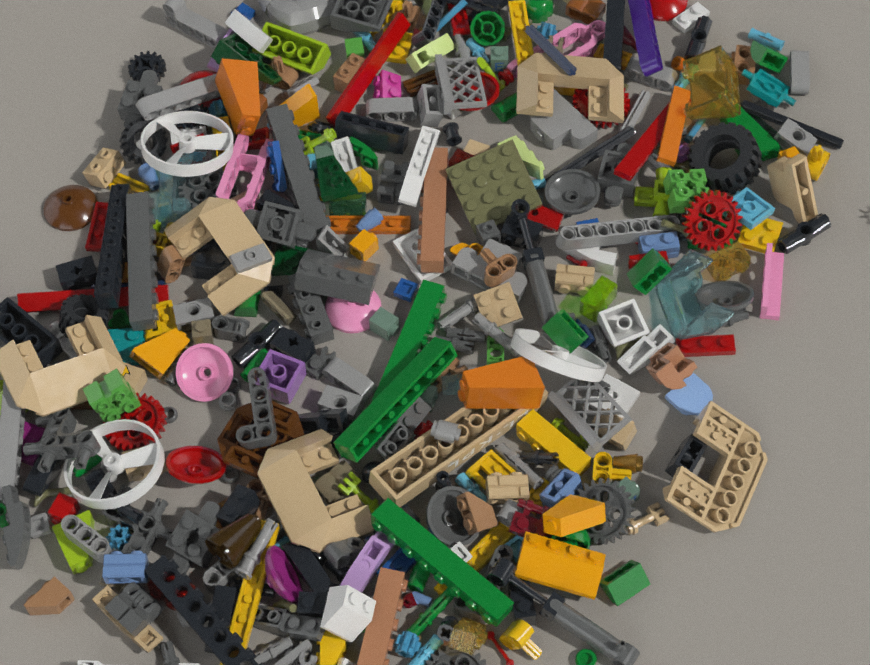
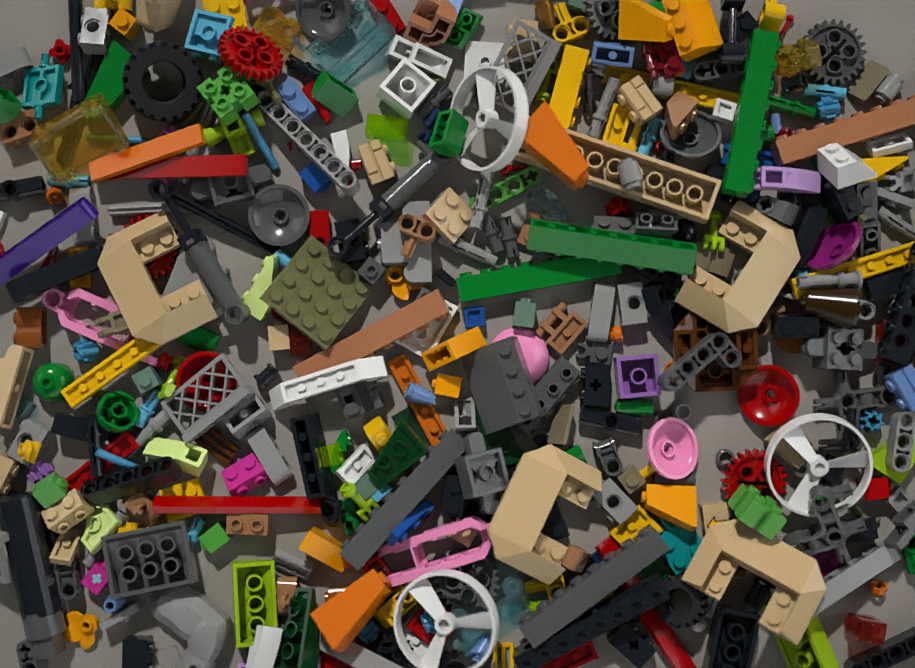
camera: 120 degrees left, 30 degrees up
(250, 258) = (545, 471): light grey plate -> none
(322, 379) = (616, 334): none -> orange hinge
(350, 349) = (566, 331): none -> medium nougat plate
(363, 141) = (332, 454): none -> clear neon green tile
(389, 260) = (453, 348): none -> light orange slope
(451, 283) = (445, 277): none -> black tile
(516, 125) = (195, 244): none -> dark grey piece
(550, 50) = (123, 320): dark blue axle -> none
(641, 206) = (260, 140): none -> dark azure bar
(649, 393) = (464, 29): none -> green slope
(793, 113) = (54, 52): none -> red plate

